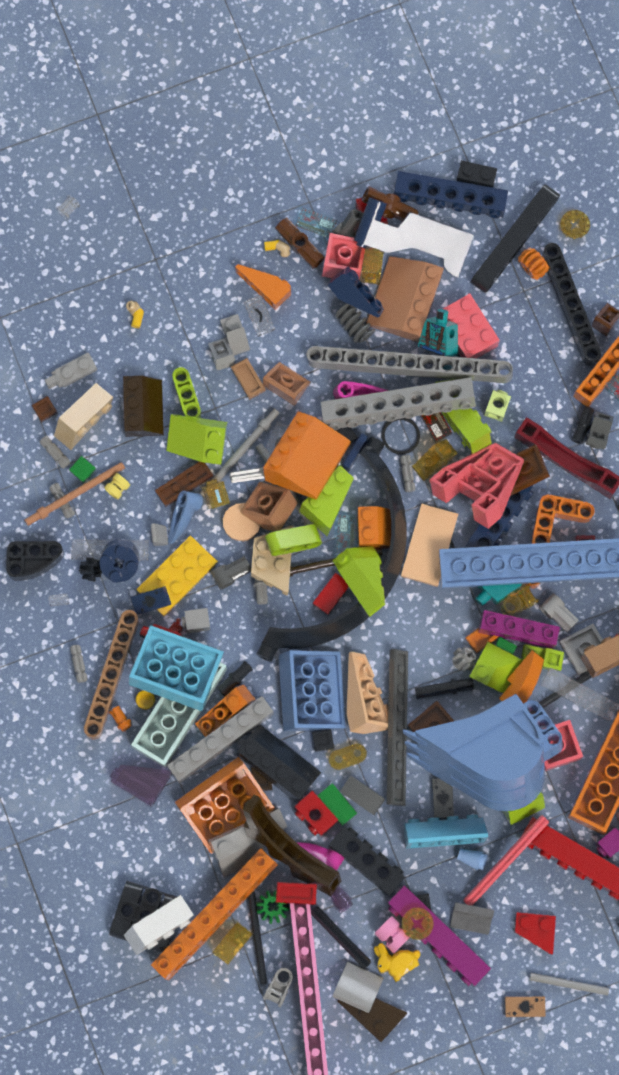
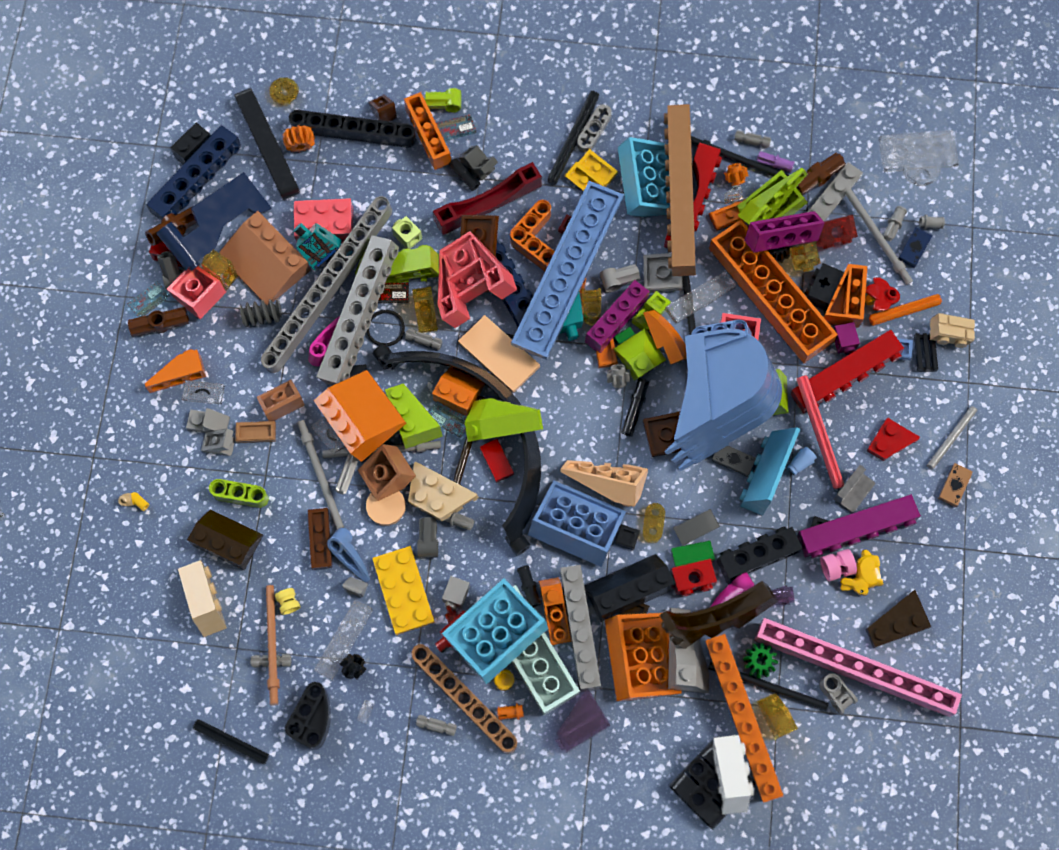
camera: 60 degrees left, 5 degrees down
(44, 409) = (173, 632): reddish brown tile -> none
(55, 452) = (220, 643): light grey axle -> none
(71, 372) = (153, 588): light grey hinge -> none
(82, 469) = (252, 626): green tile -> none
(116, 570) = (370, 639): dark blue brick -> none
(151, 600) = (414, 624): dark blue tile -> none
(197, 438) = (285, 503): lime slope -> none
(215, 494) = (347, 514): clear yellow brick -> none
(278, 245) = (153, 339): arm -> none
(293, 540) = (430, 465): lime beam -> none
(296, 893) = (762, 630): red tile -> none
(340, 937) = (818, 613): black axle -> none
(353, 292) = (228, 298): dark blue slope -> none
(355, 451) = (378, 371): dark blue tile -> none
(358, 987) = (872, 621): light grey slope -> none
(396, 723) = (650, 465): dark grey tile -> none
(407, 923) = (845, 528): clear yellow gear -> none

